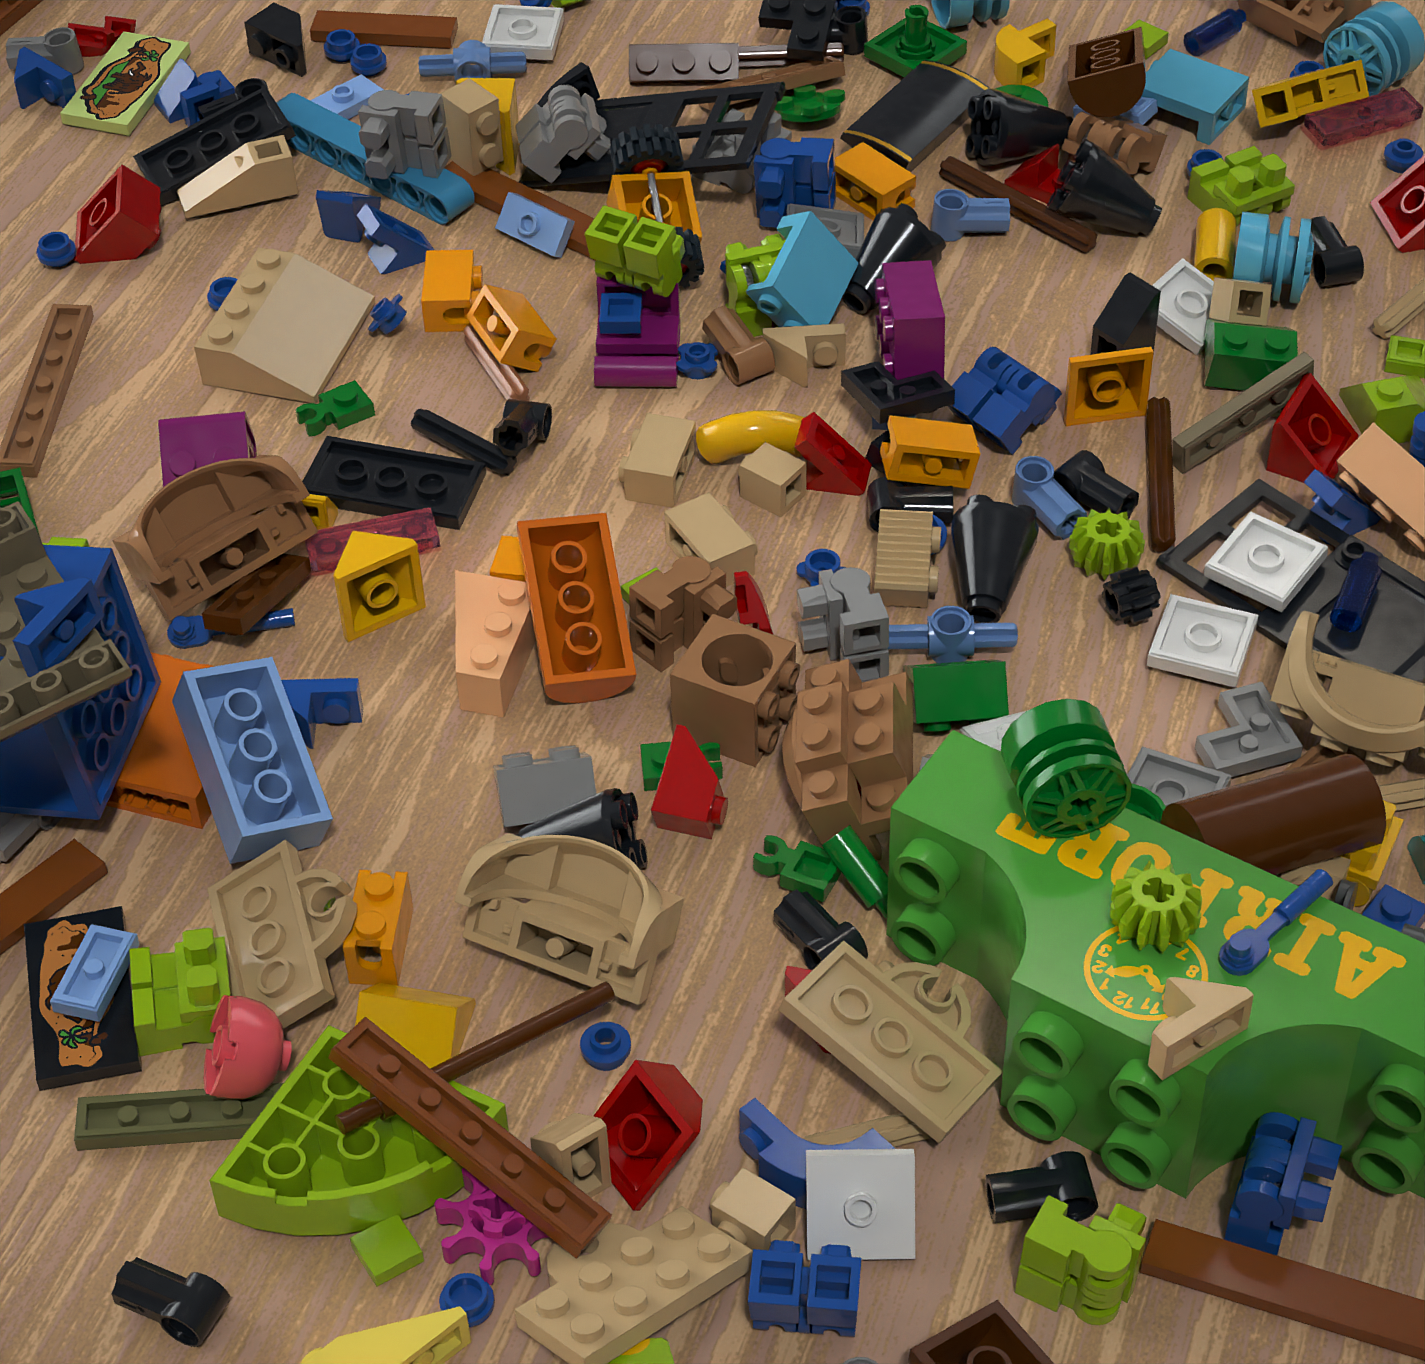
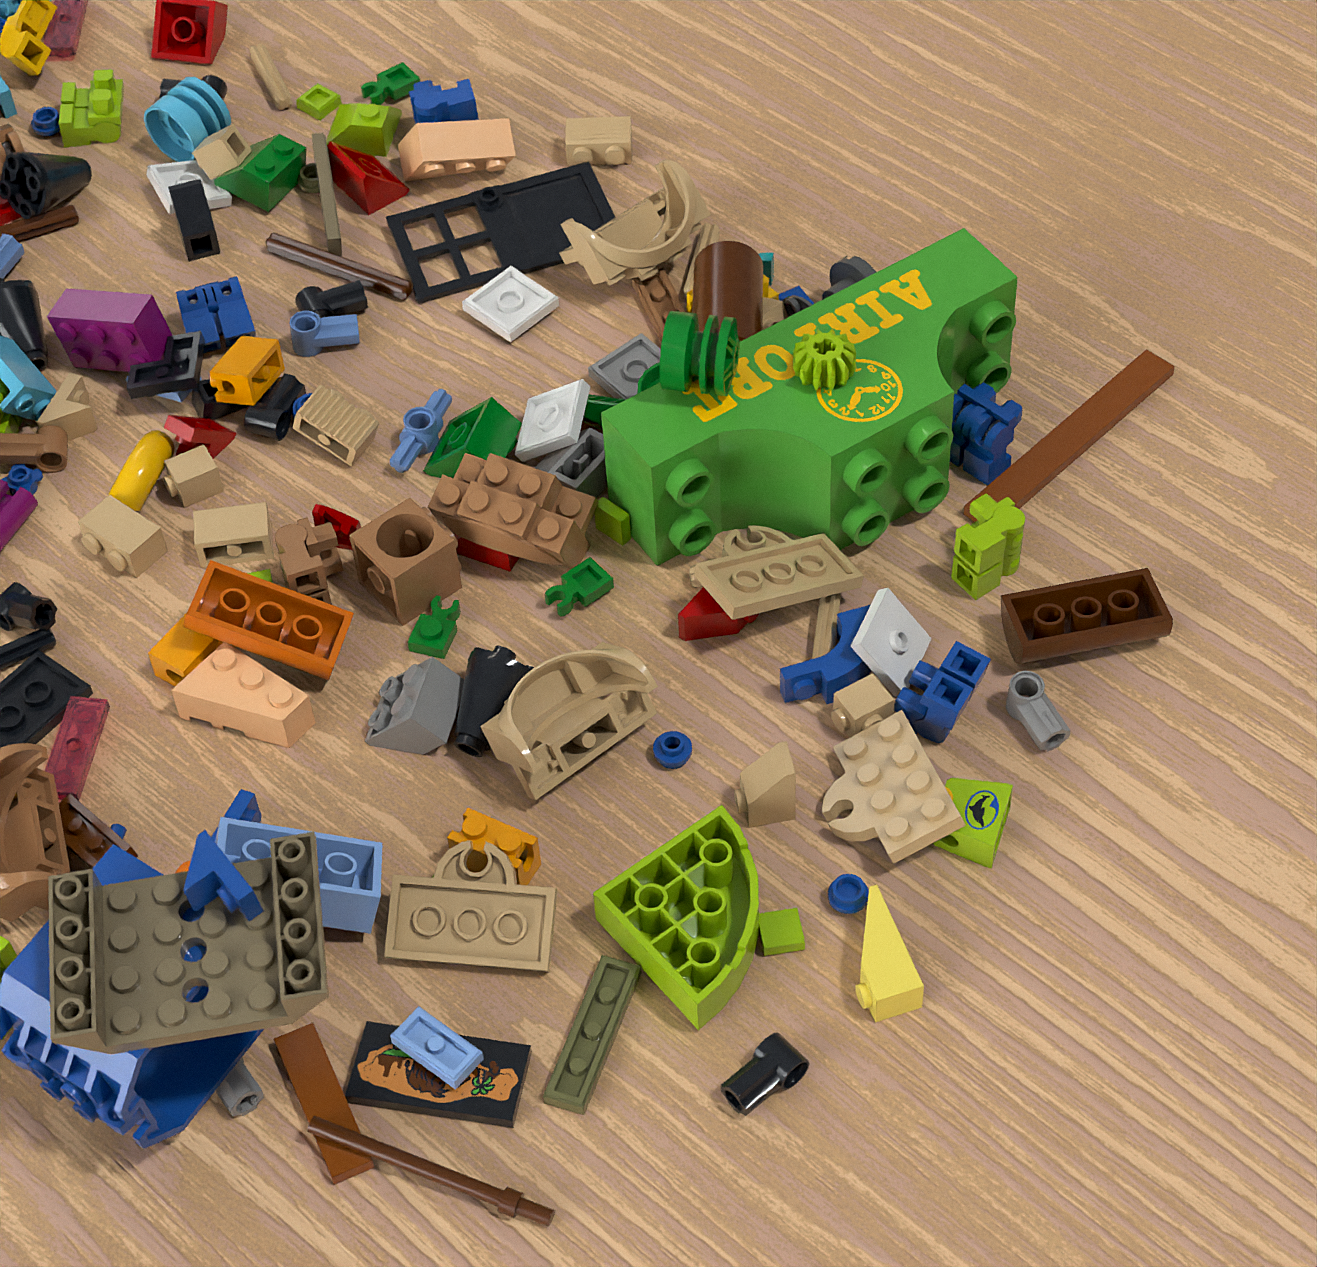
camera: 65 degrees left, 5 degrees up
(178, 991) = (485, 993): lime hips -> none
(244, 1049) = (573, 963): coral cylinder -> none
(377, 582) = (139, 749): yellow slope -> none
(420, 1020) = (592, 856): yellow slope -> none
(470, 1137) = (743, 830): dark orange tile -> none
(488, 1051) = (689, 865): reddish brown bar -> none
(489, 1229) = (797, 851): dark pink gear -> none
(649, 1127) = (760, 726): red slope -> none
(688, 791) = (476, 618): red slope -> none
(814, 928) = (658, 594): black piece -> none
(818, 561) = (303, 481): blue plate -> none
(849, 622) = (384, 474): light grey hips -> none
(859, 868) = (609, 550): green cylinder -> none
(991, 553) = (368, 377): black cone -> none
(1023, 1191) = (917, 548): black piece -> none
(1106, 543) = (391, 316): lime gear -> none
(1108, 386) = (244, 249): light orange slope -> none
(1131, 595) = (450, 321): black gear -> none
(1198, 1021) = (924, 372): tan slope -> none
(1215, 243) = (138, 146): yellow brick -> none
(1251, 947) = (869, 333): blue piece -> none
(1256, 737) = (612, 307): light grey plate -> none
(1266, 561) = (469, 241): white plate -> none
(1340, 505) = (440, 187): blue slope -> none
(1356, 593) = (528, 208): clear blue cylinder -> none
(1402, 154) = (120, 21): blue plate -> none

